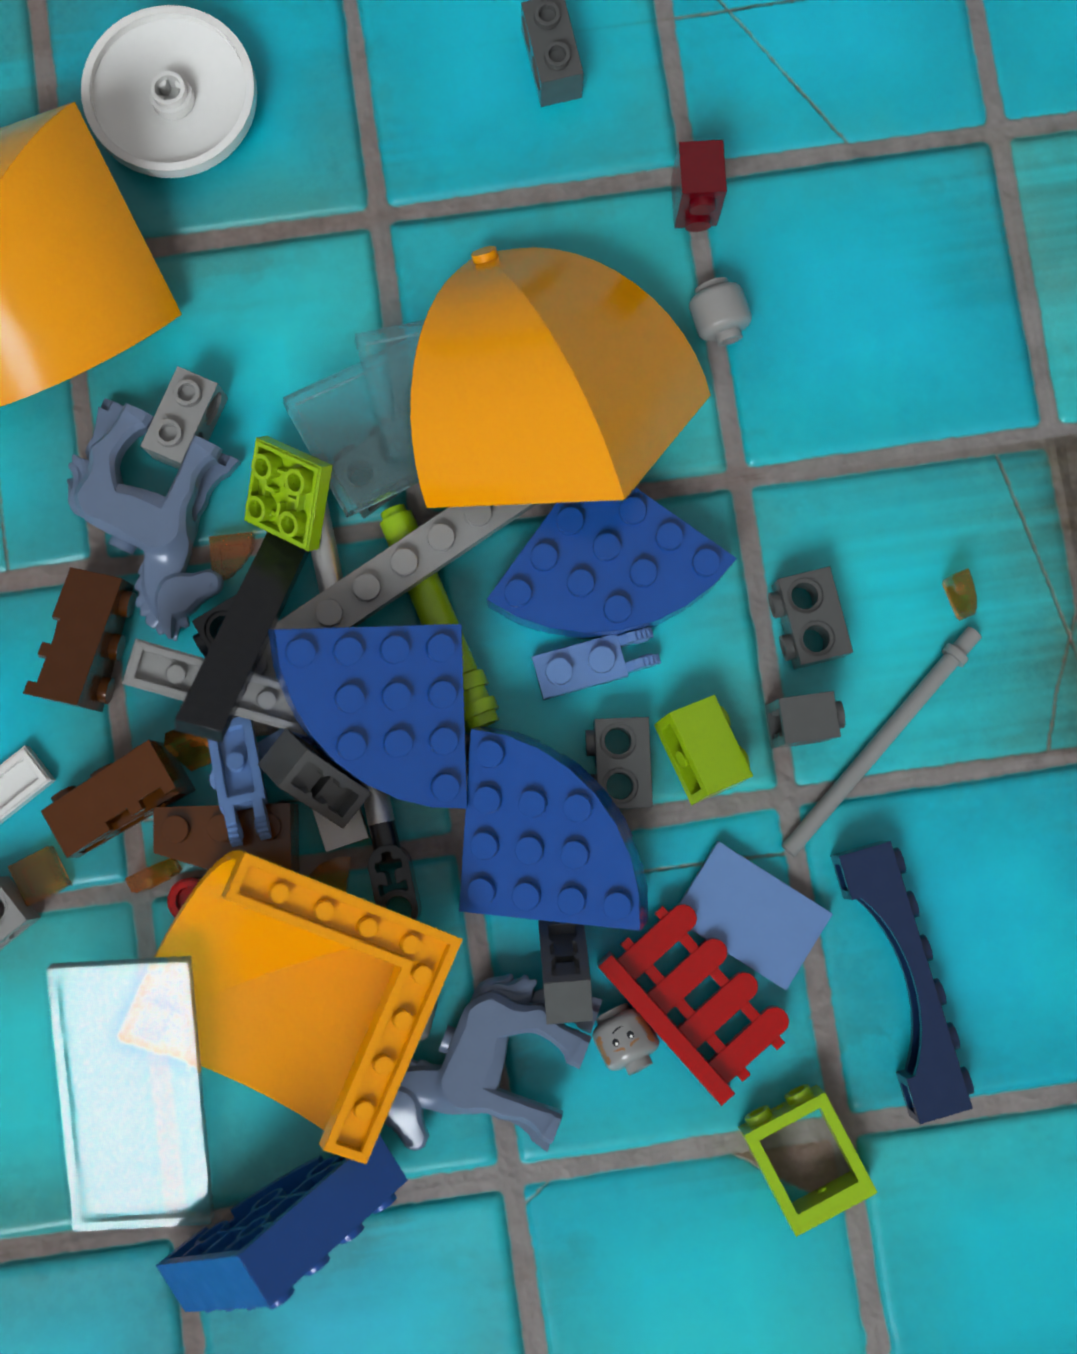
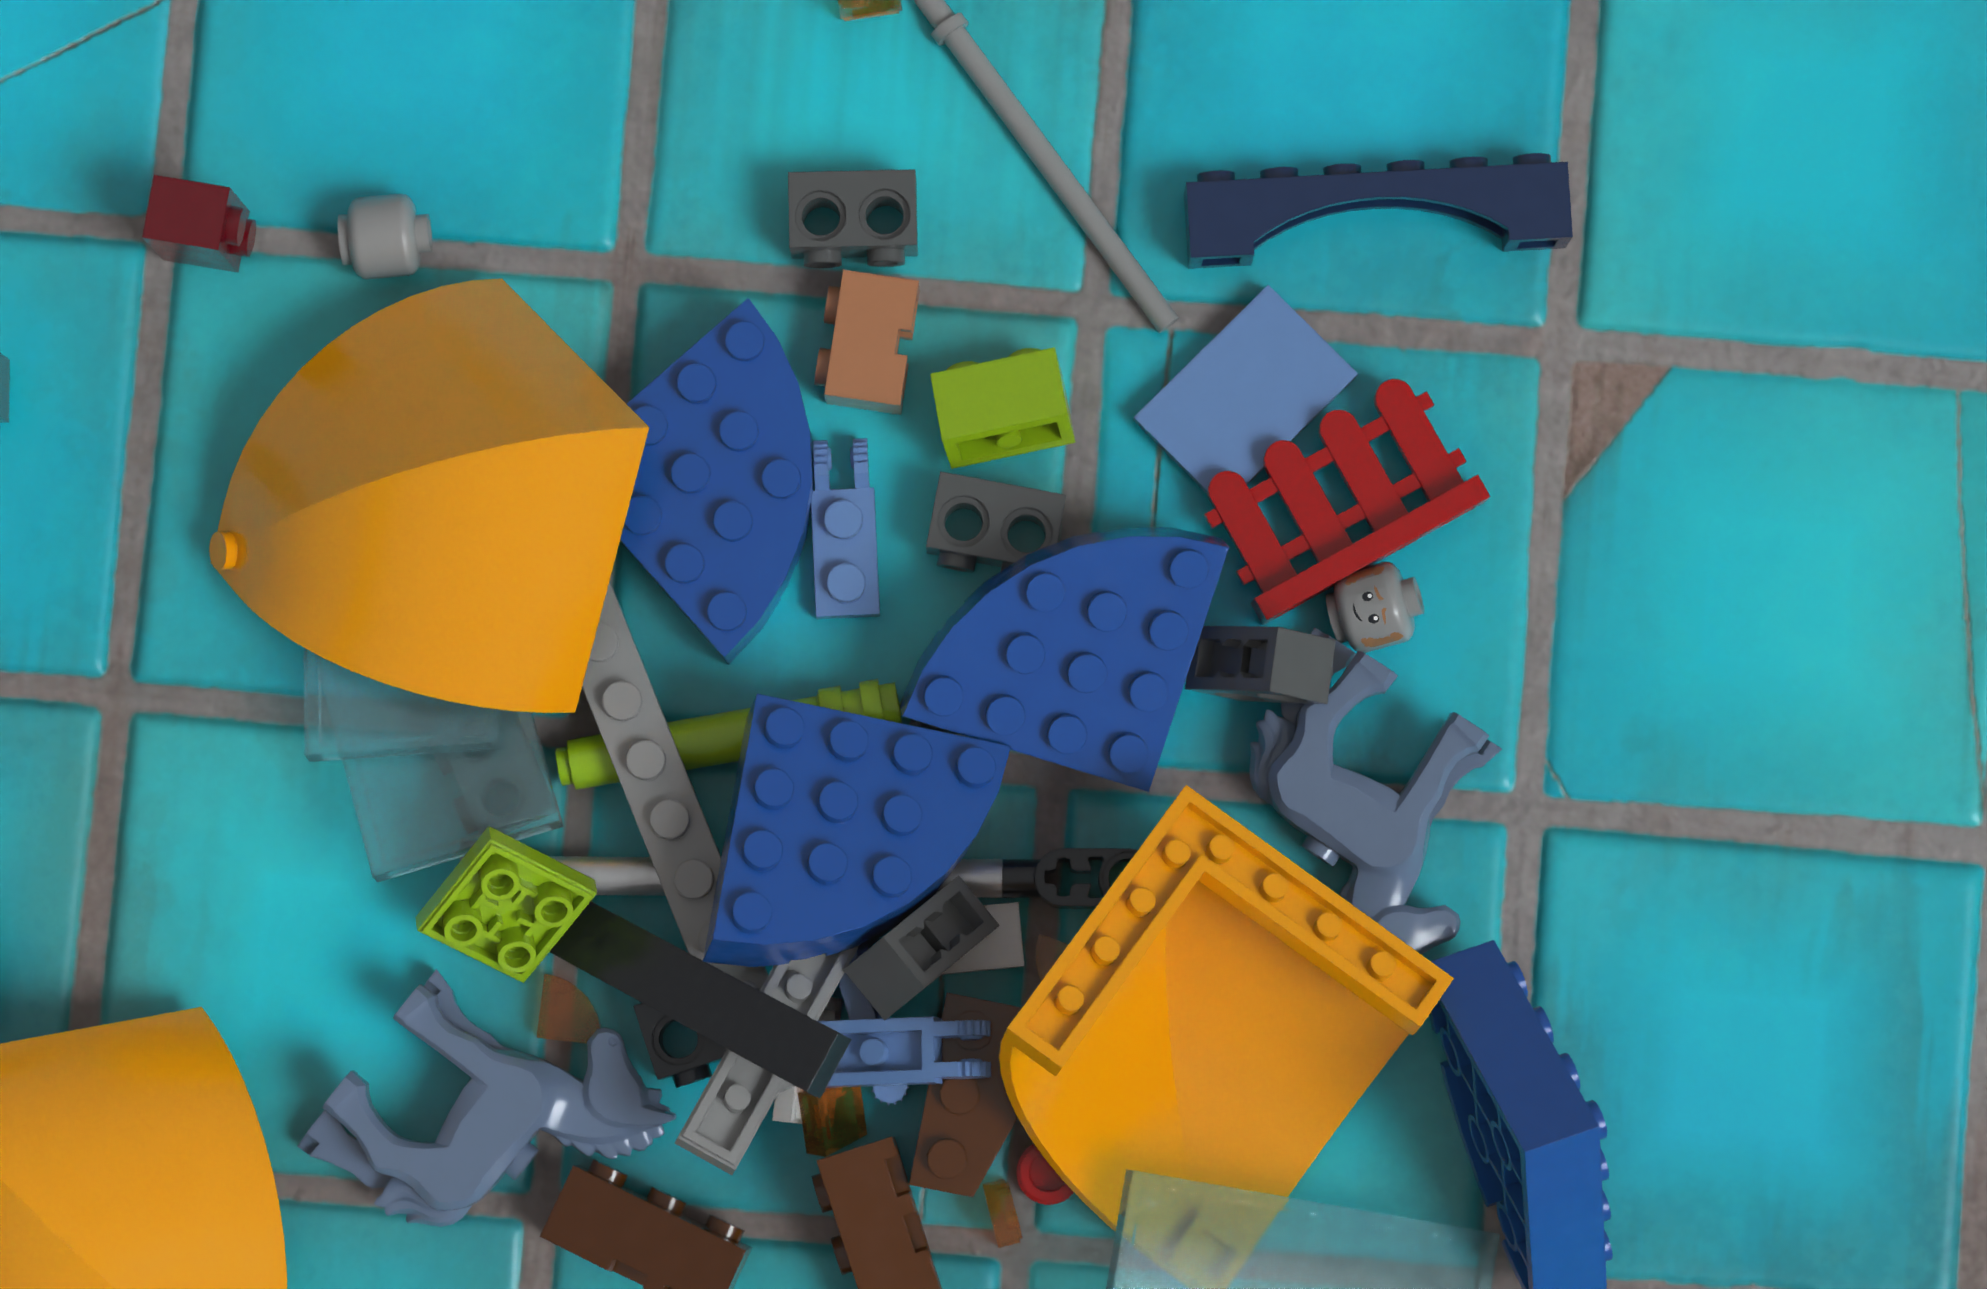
camera: 75 degrees left, 0 degrees up
(187, 409) = (360, 1034): light grey brick -> none
(729, 646) = (864, 359): none -> nougat brick
(804, 719) = (994, 259): dark grey brick -> none
(830, 1198) = (1649, 386): lime window -> none

